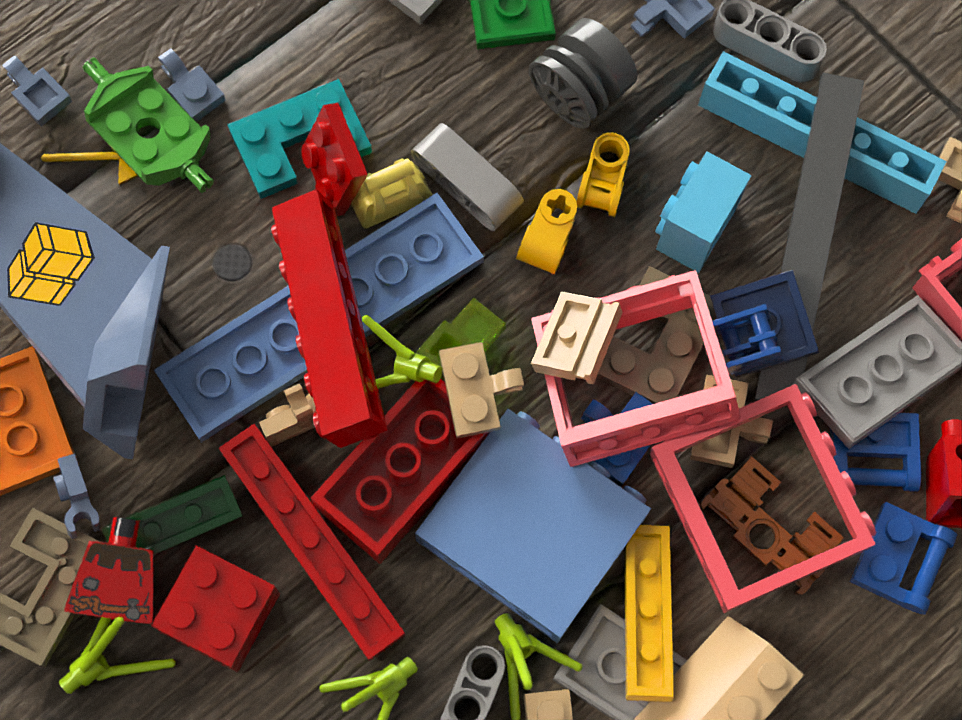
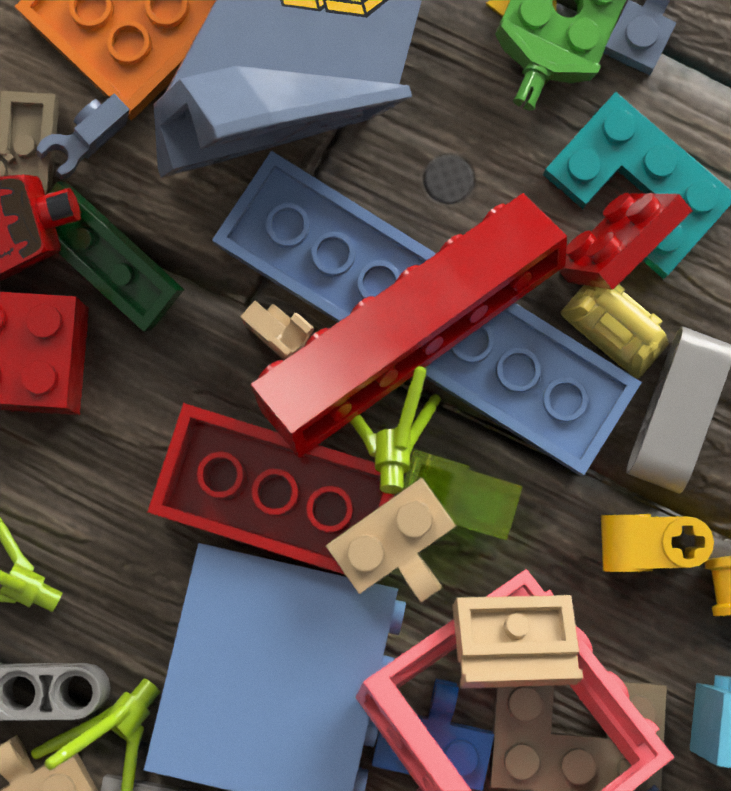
camera: 70 degrees right, 10 degrees up
(312, 542) = (146, 426): red plate -> none

